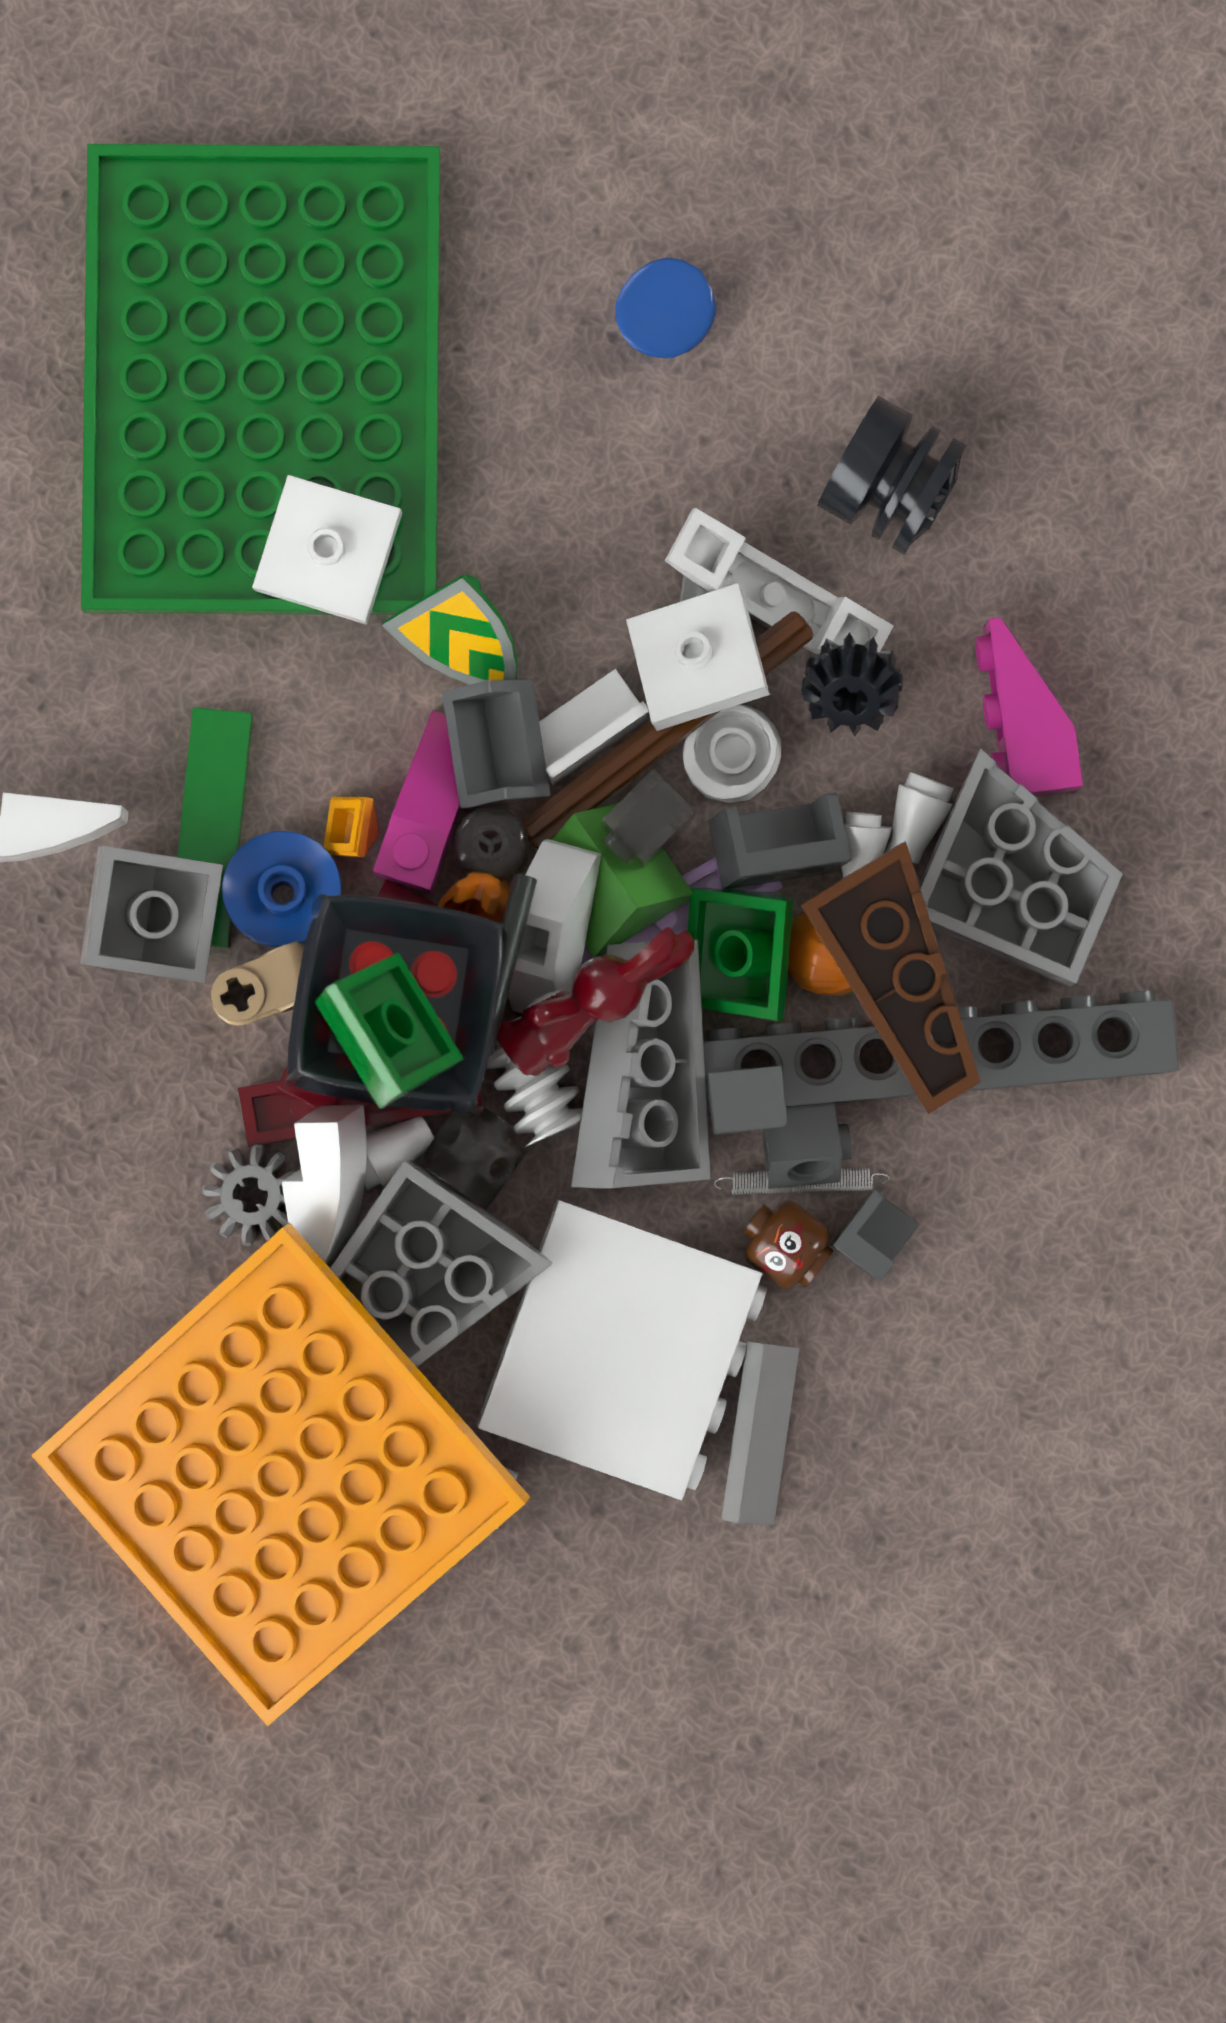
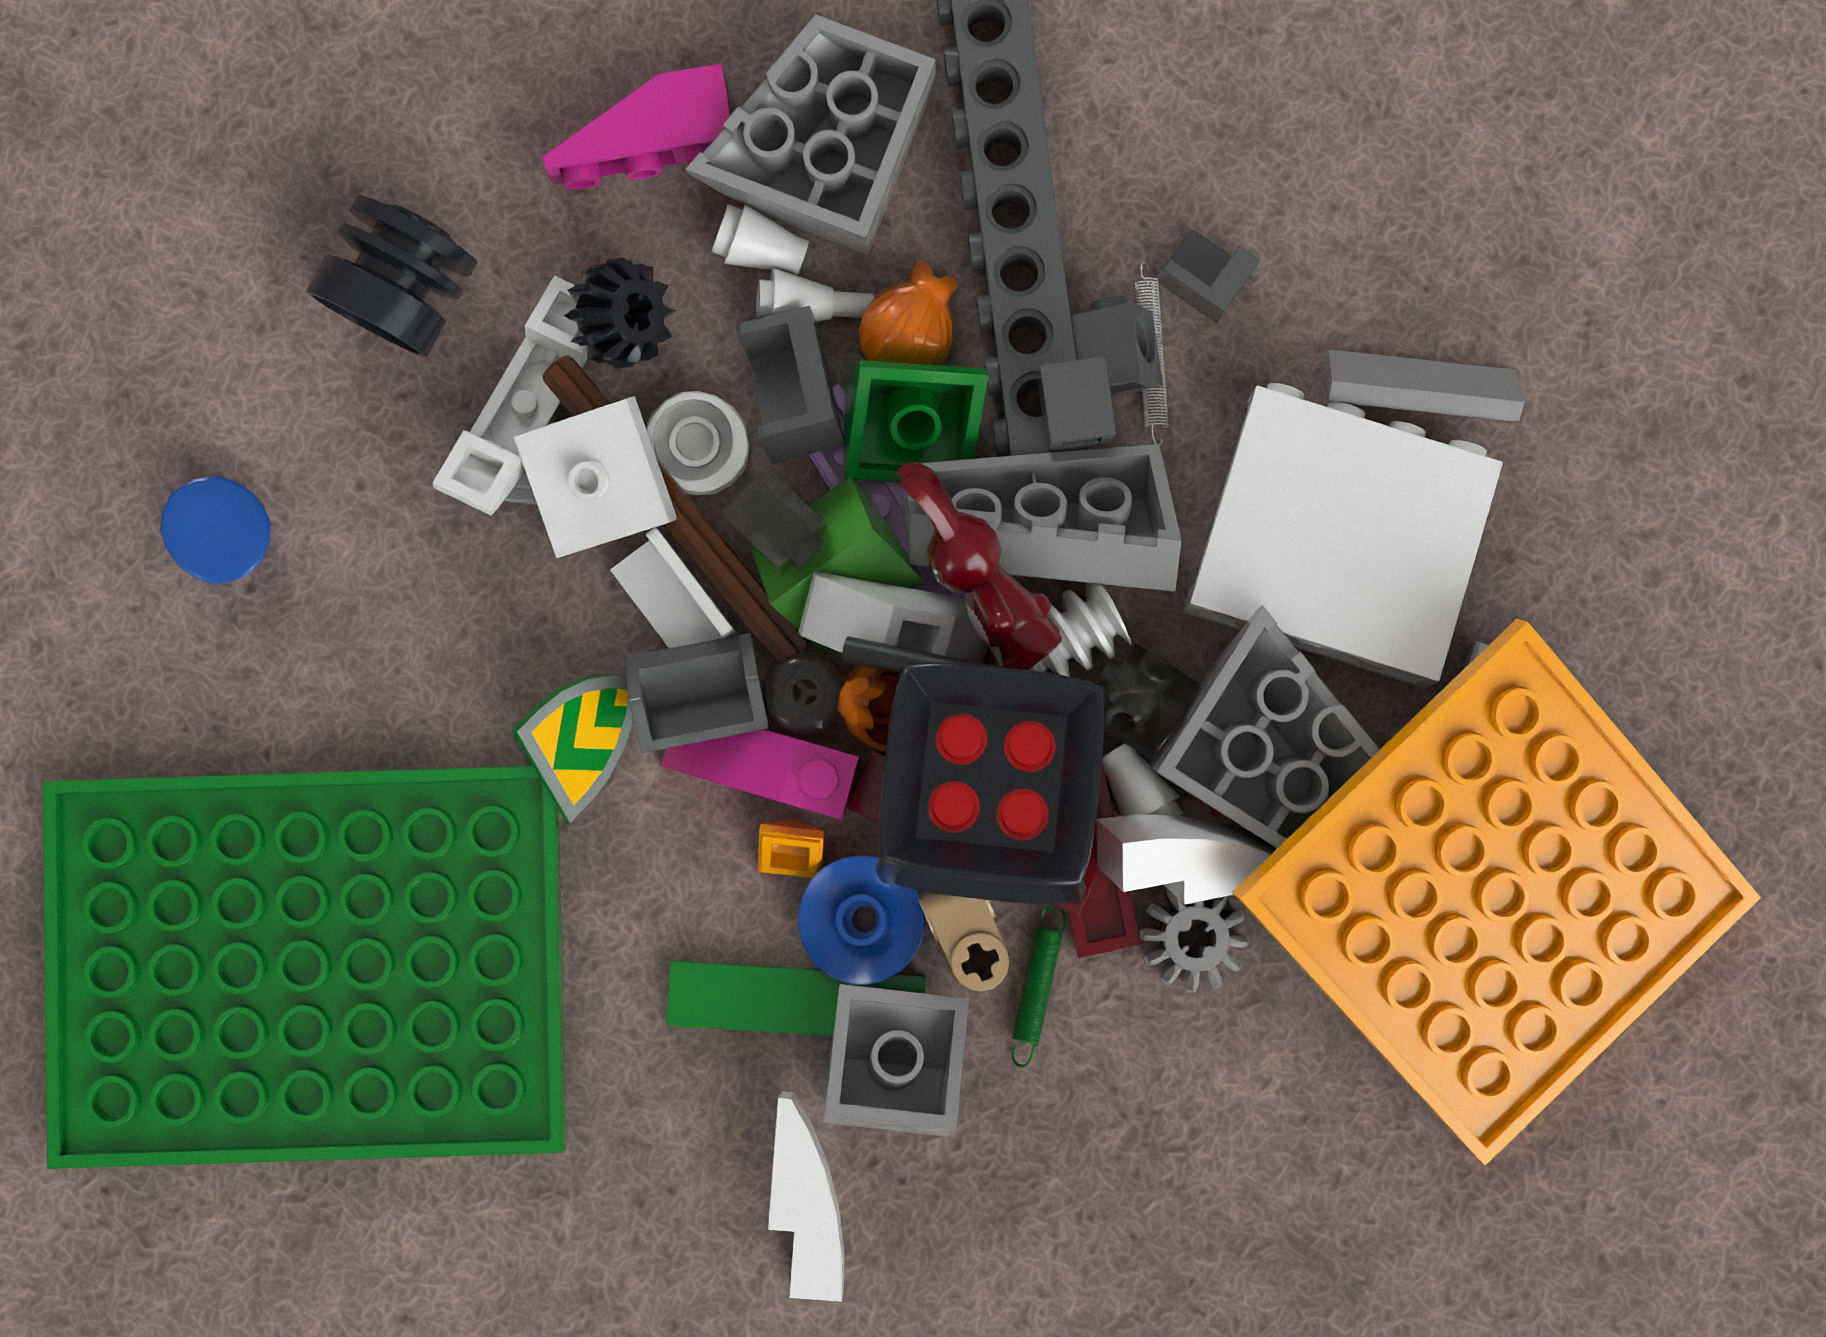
camera: 80 degrees left, 0 degrees up
(214, 1050) = (1037, 985): none -> green piece
(327, 549) = (489, 885): white plate -> none
(388, 1029) = (1032, 782): green slope -> none
(787, 1244) = (1222, 362): reddish brown head -> none
(892, 961) = (917, 250): reddish brown wedge -> none

